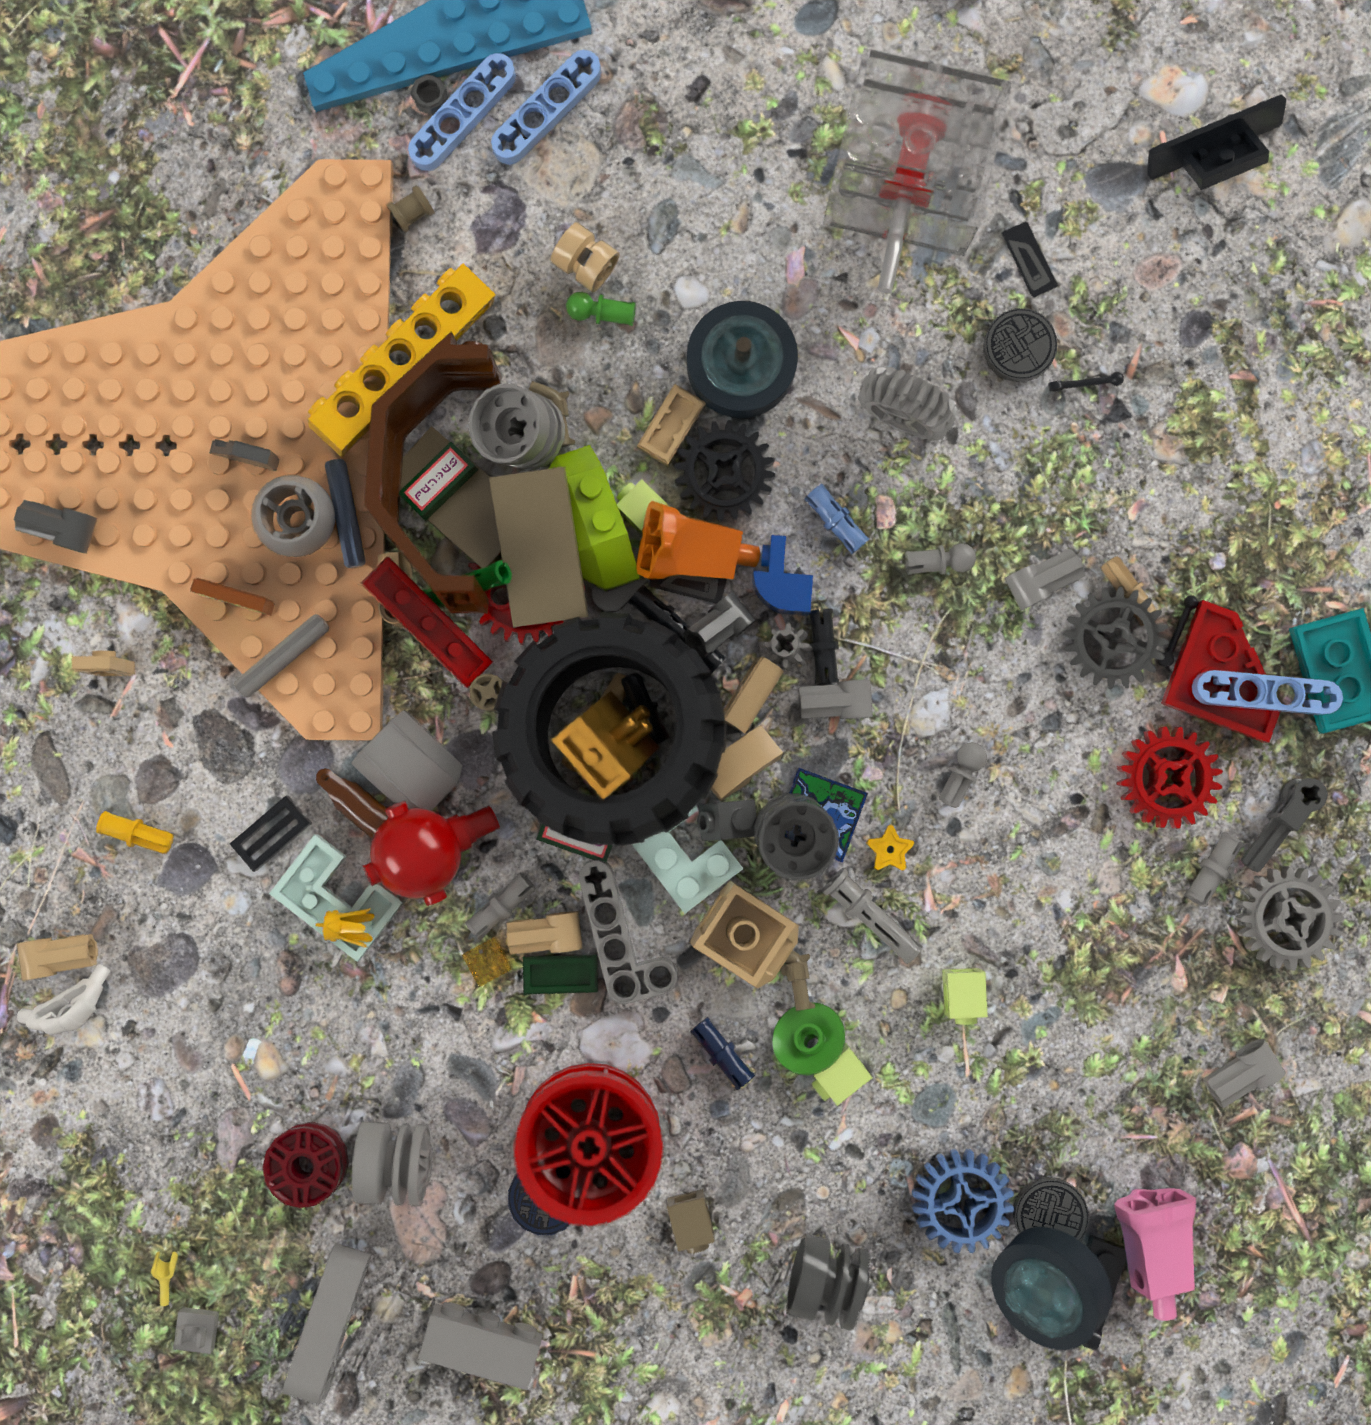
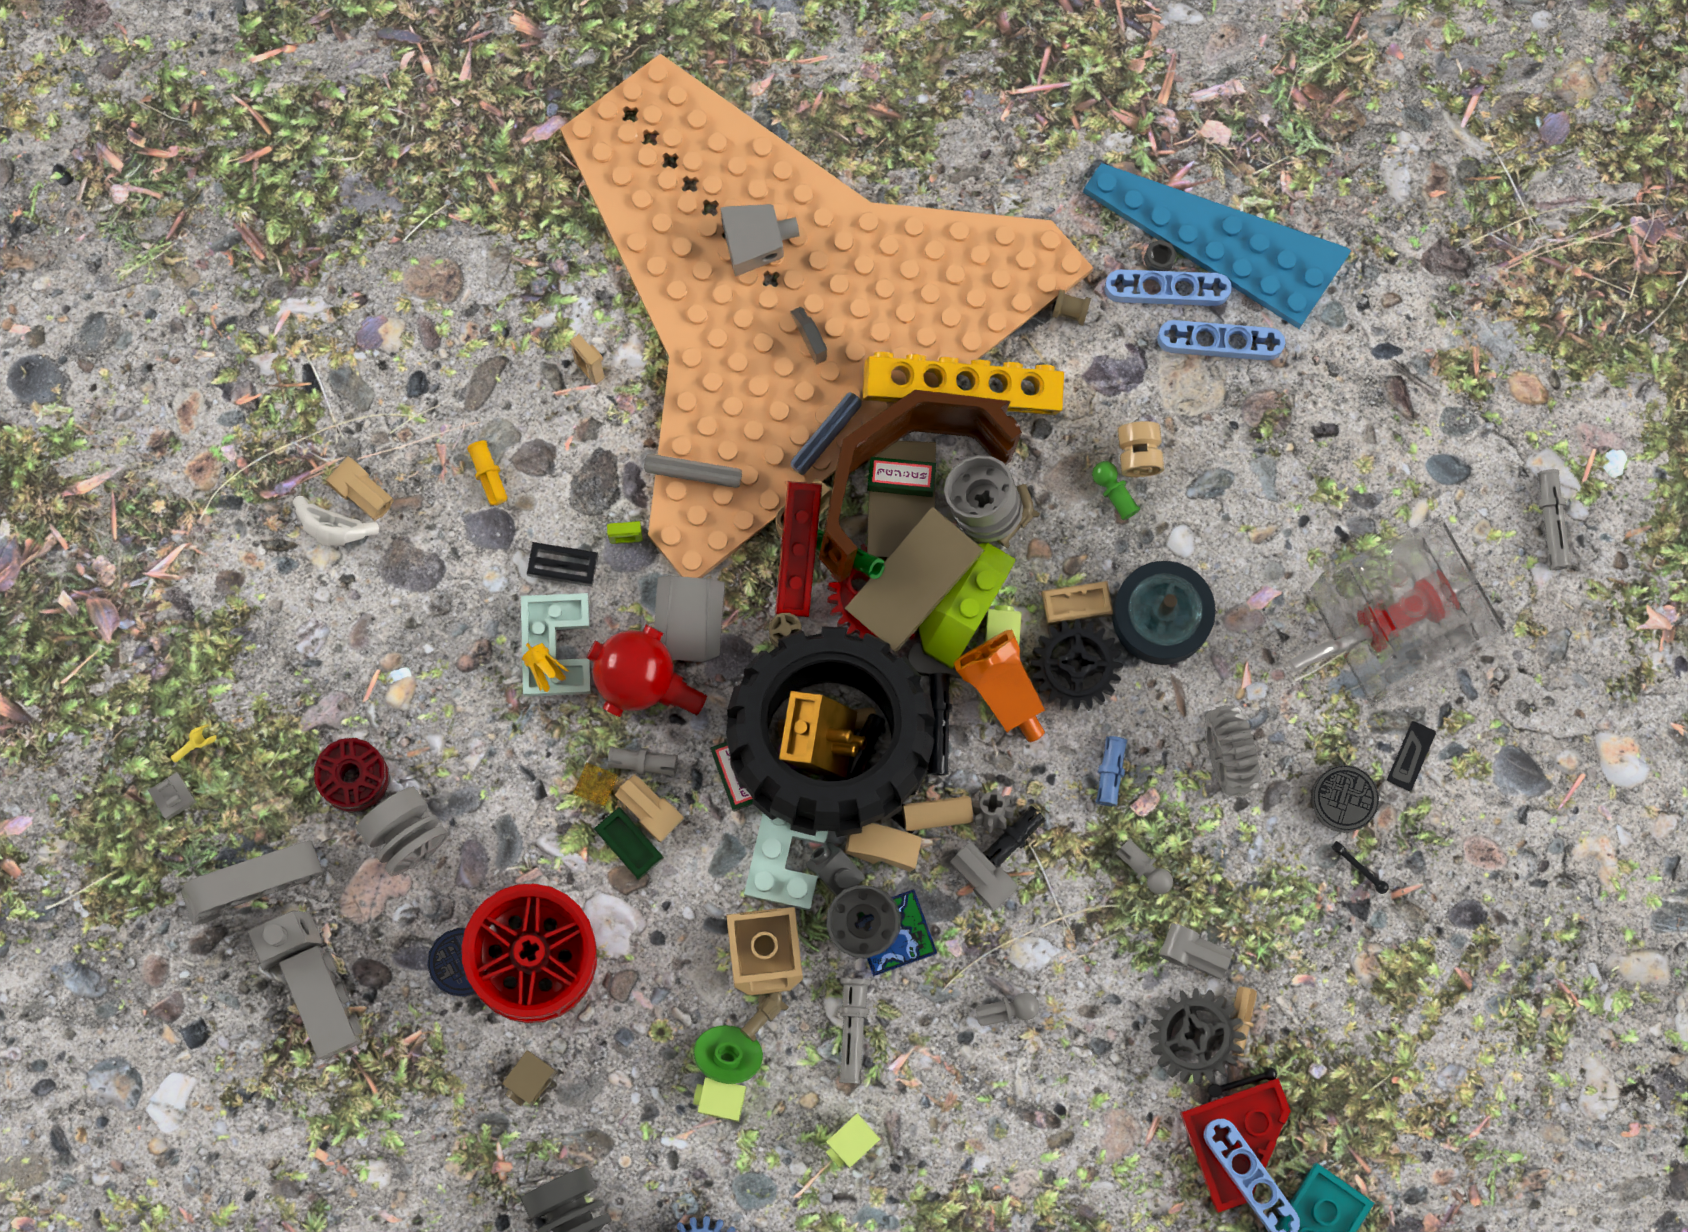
camera: 45 degrees right, 10 degrees down
(65, 528) = (658, 258): dark grey piece -> none
(114, 425) = (755, 235): none -> light grey torso
(232, 596) = (706, 405): dark orange tile -> none
(287, 758) = (624, 532): none -> lime tile
(317, 524) = (777, 412): light grey wheel -> none
(353, 801) = (632, 599): reddish brown piece -> none
(400, 1337) = (284, 938): none -> light grey torso
(618, 929) = (694, 855): light grey beam -> none
(696, 587) = (978, 710): sticker -> none
(722, 1053) = (666, 1002): dark blue pin -> none
(723, 622) = (973, 750): dark grey piece -> none
(779, 590) = (1026, 768): blue brick -> none
(880, 845) = (908, 1012): yellow plate -> none
(1182, 767) = (1161, 1164): red gear -> none
(1222, 147) = (1606, 822): black bracket -> none

